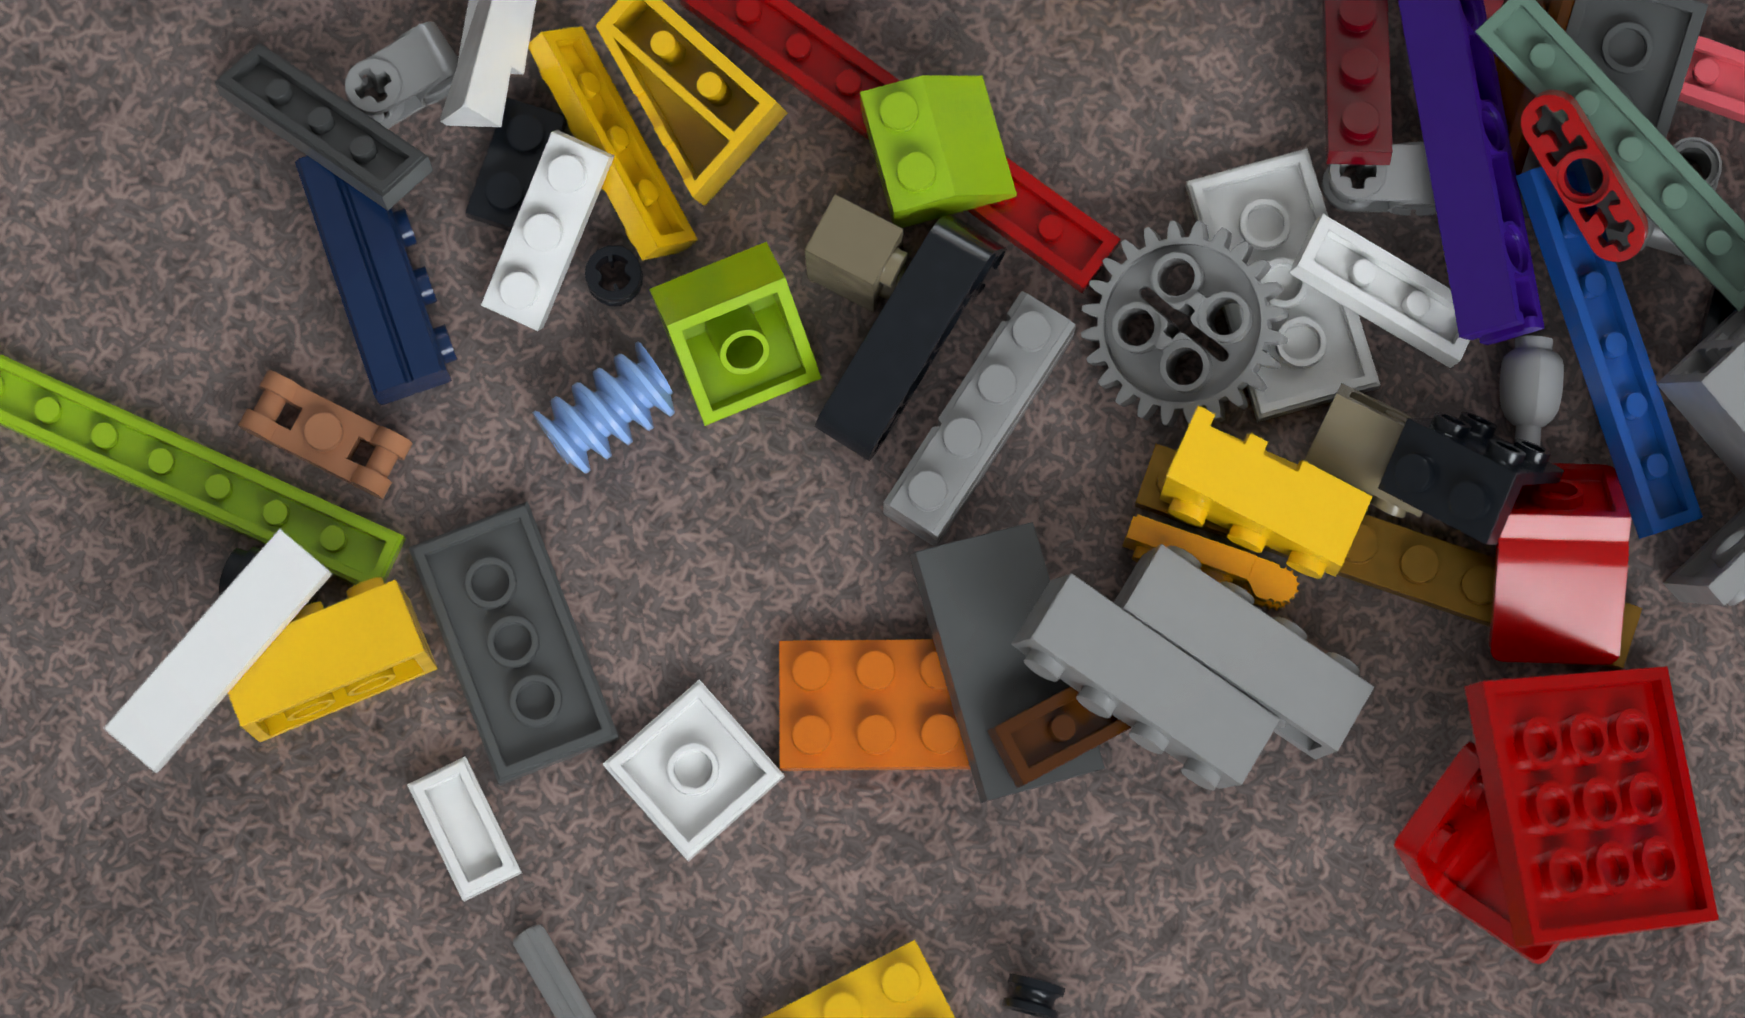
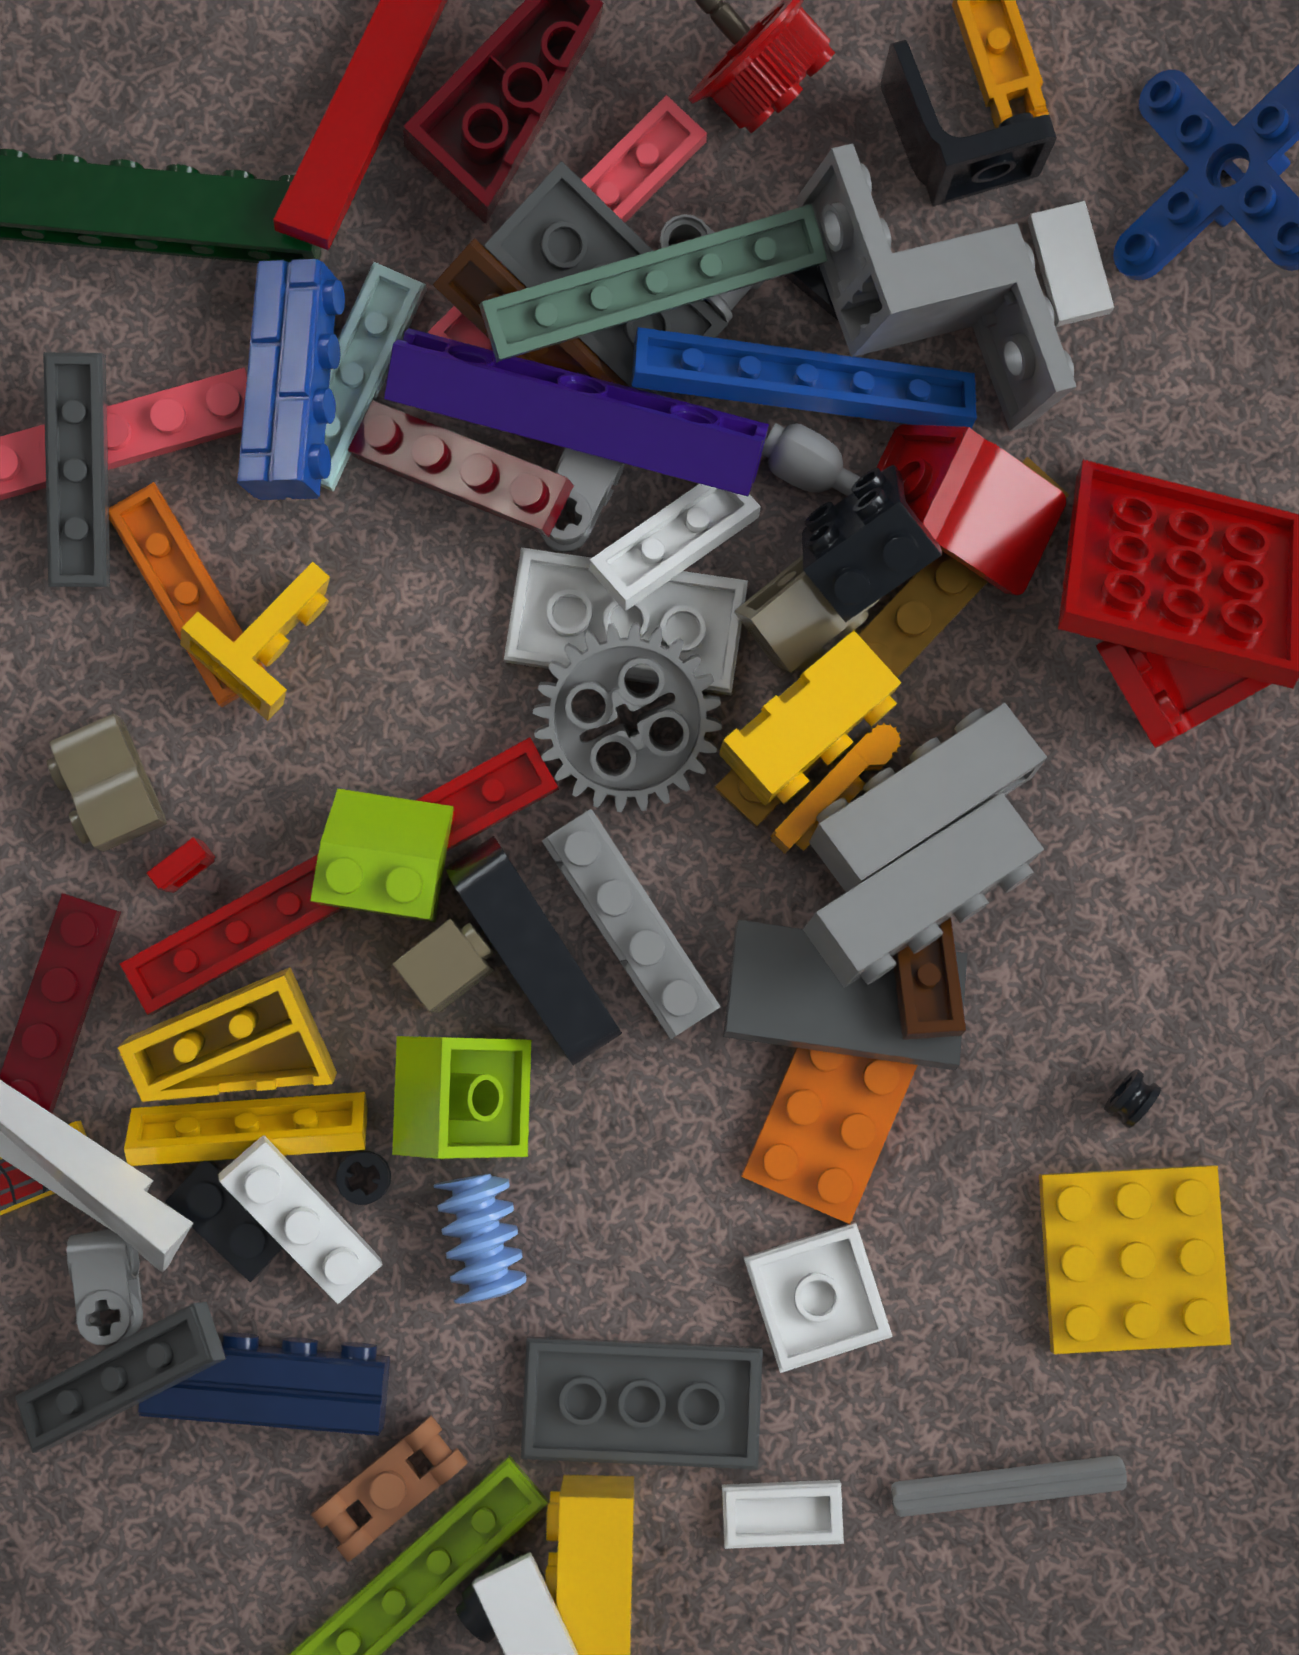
camera: 70 degrees left, 5 degrees up
(1622, 209) = (704, 342): red beam -> none

